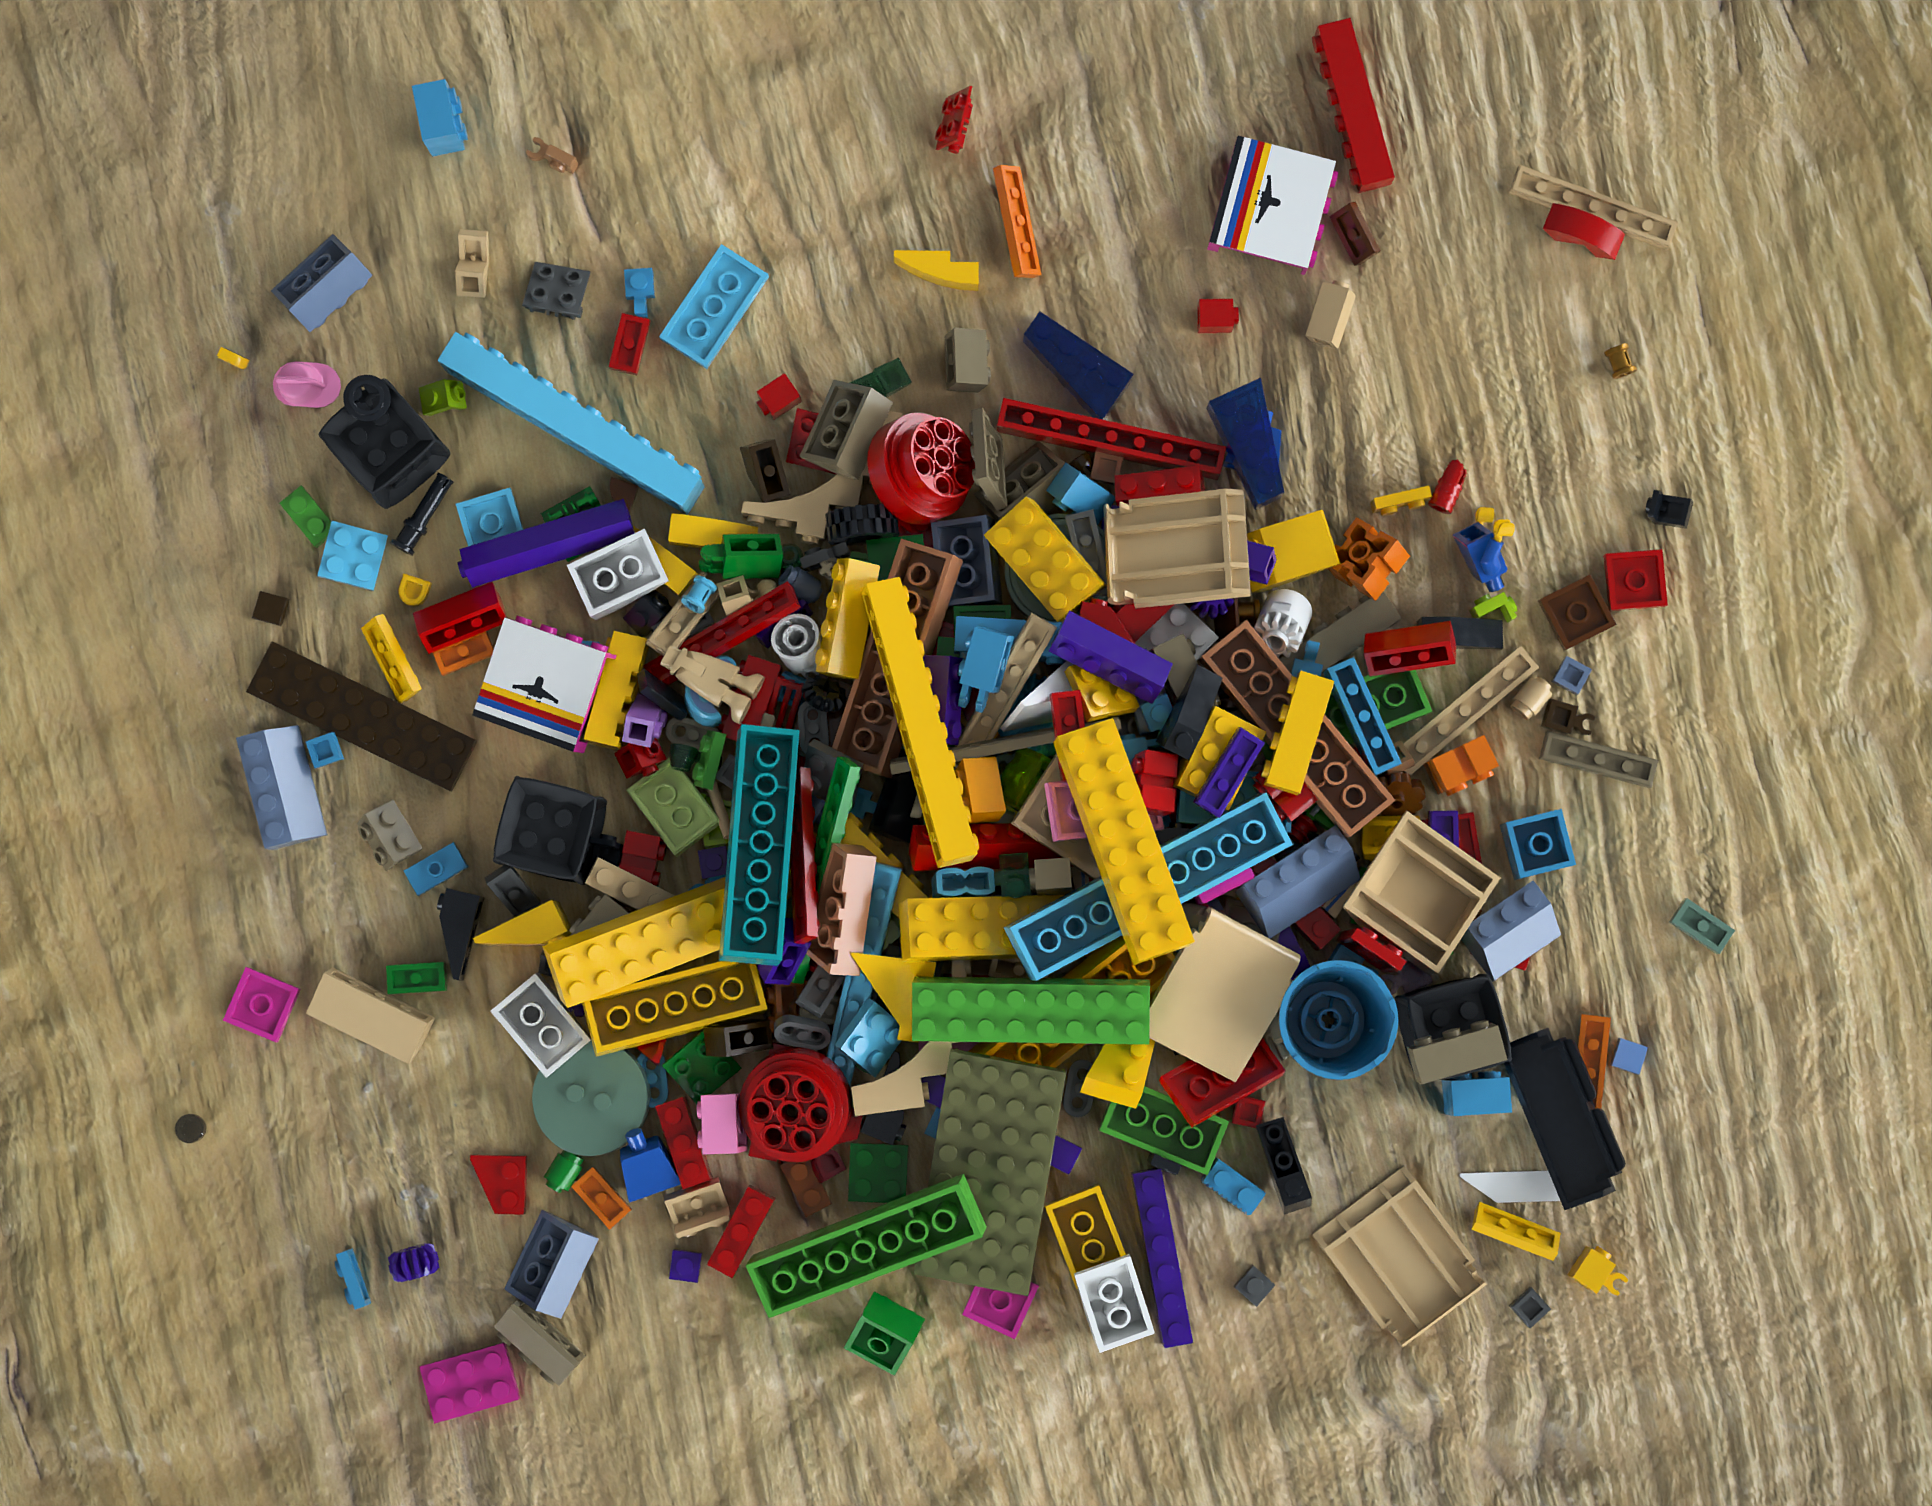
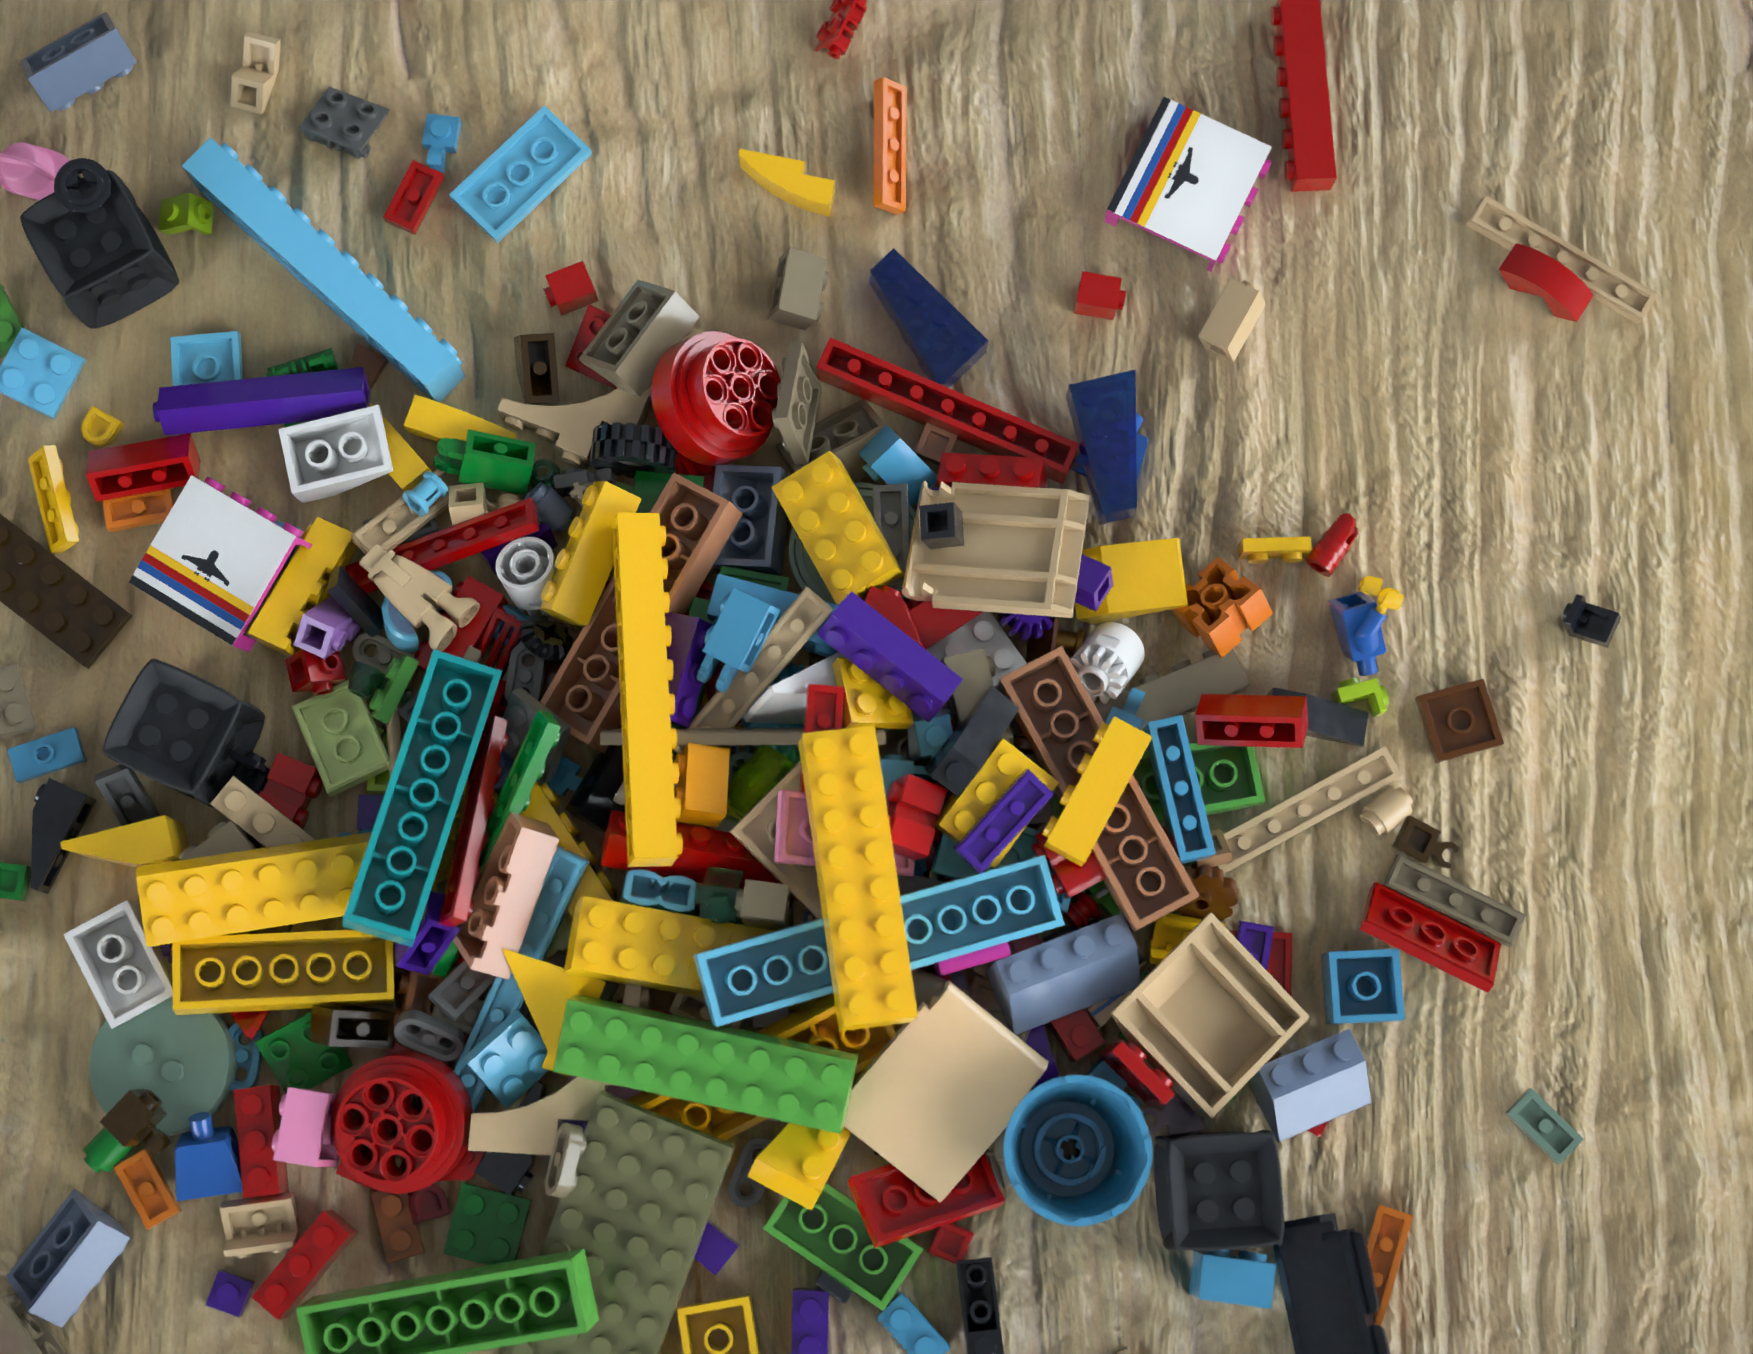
camera: 10 degrees right, 5 degrees down
(416, 525) = (120, 353): black pin -> none
(503, 1181) = (35, 1145): red wing -> none
(584, 1144) = (136, 1120): none -> dark brown brick
(647, 612) = (363, 504): black bracket -> none
(886, 378) = (704, 293): clear green slope -> none
(934, 1108) = (561, 1171): none -> dark tan plate
(1082, 461) = (909, 431): dark brown hinge -> none
(1129, 540) = (941, 525): none -> black brick
(1355, 233) = (1278, 234): reddish brown plate -> none
(1456, 1052) = (1216, 1219): dark tan brick -> none
(1465, 763) = (1288, 872): orange brick -> none
(1571, 675) = (1439, 793): sand blue plate -> none
(1585, 793) = (1431, 937): none -> red tile
(1620, 361) = (1562, 439): pearl gold bush -> none
(1628, 1056) = (1427, 1268): medium blue tile -> none
(1635, 580) = (1536, 696): red plate -> none

